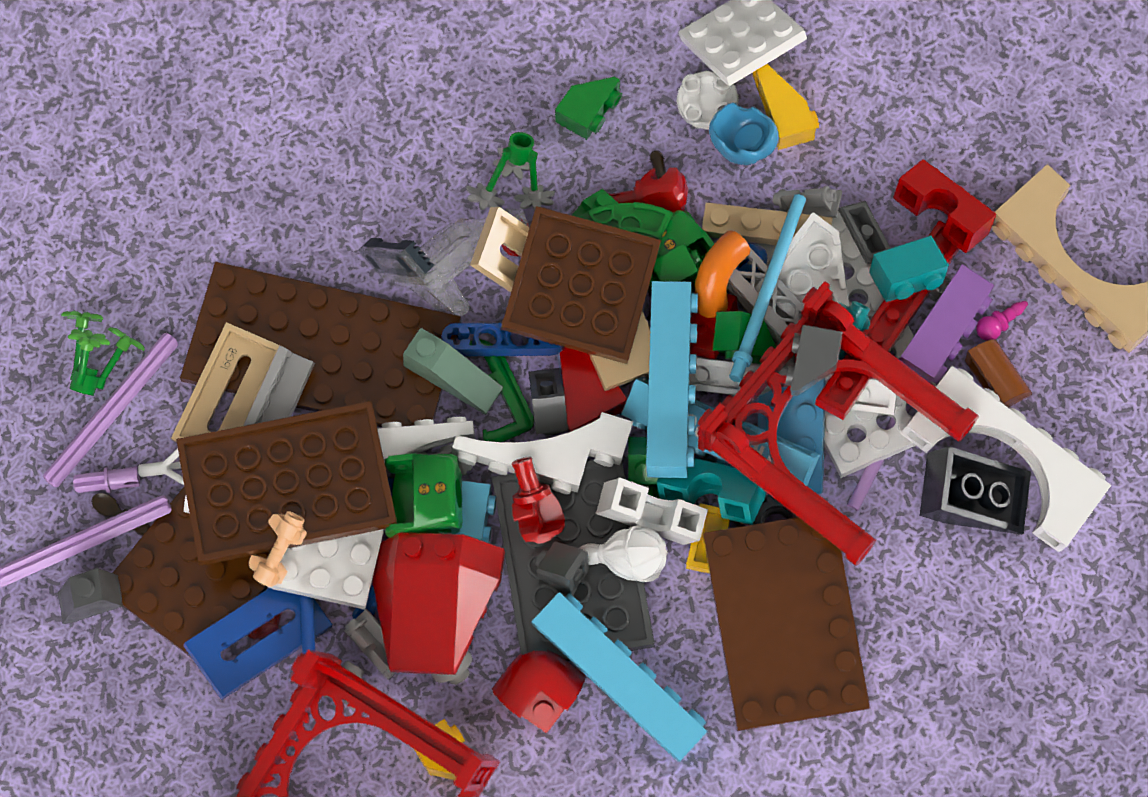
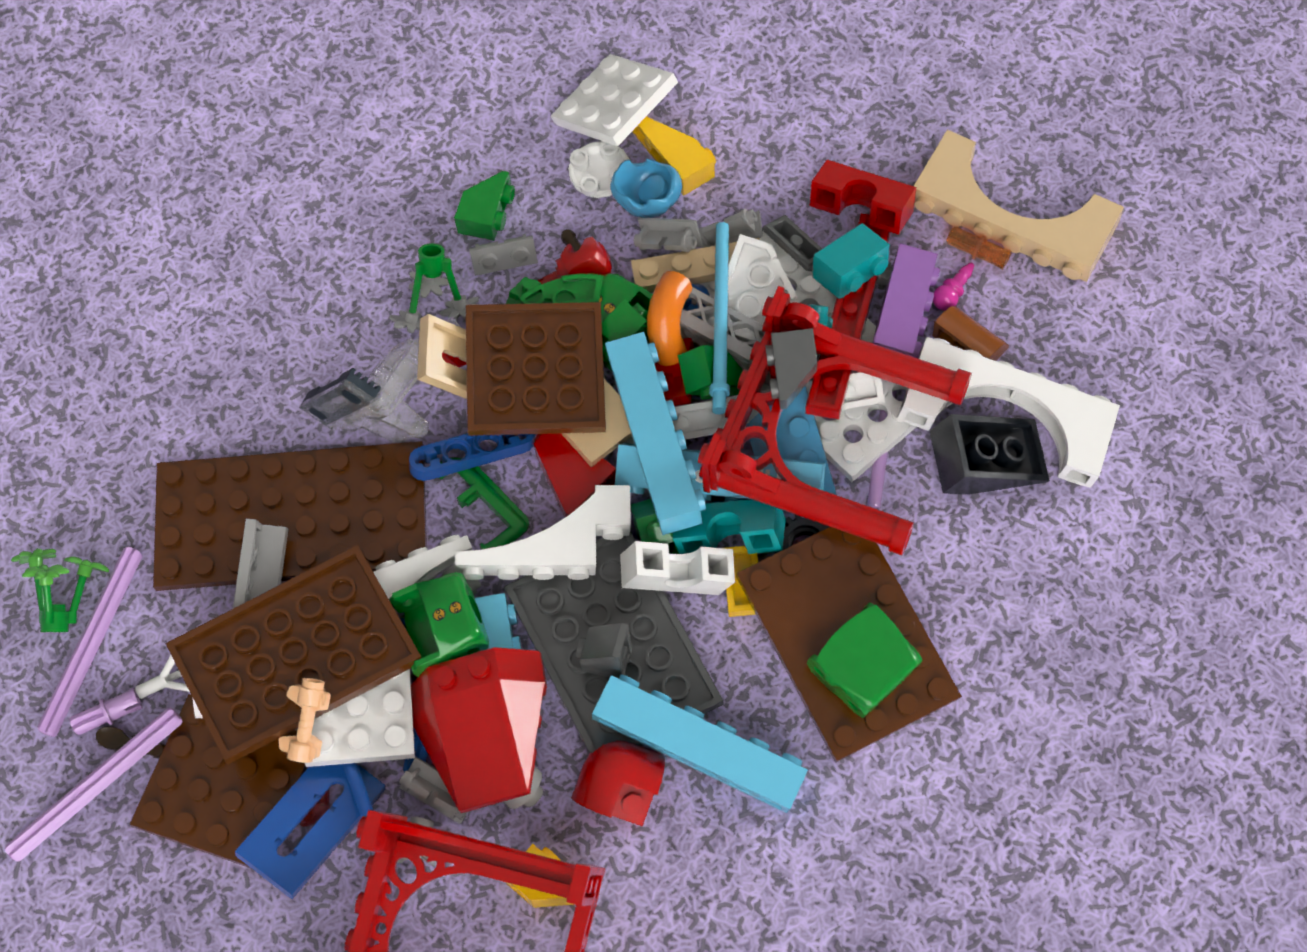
camera: 15 degrees left, 5 degrees down
(89, 595) = (119, 834): dark grey slope -> none
(229, 349) = (190, 571): tan piece -> none
(450, 371) = (428, 494): sand green slope -> none
(535, 505) = (557, 597): red piece -> none
(548, 401) = (537, 496): dark grey slope -> none
(580, 157) = (503, 256): none -> light grey hinge
(631, 554) = (671, 616): white piece -> none
(756, 190) = (670, 233): none -> light grey hinge
(791, 650) = (865, 660): none -> green piece
(1038, 288) = (978, 247): none -> clear orange axle

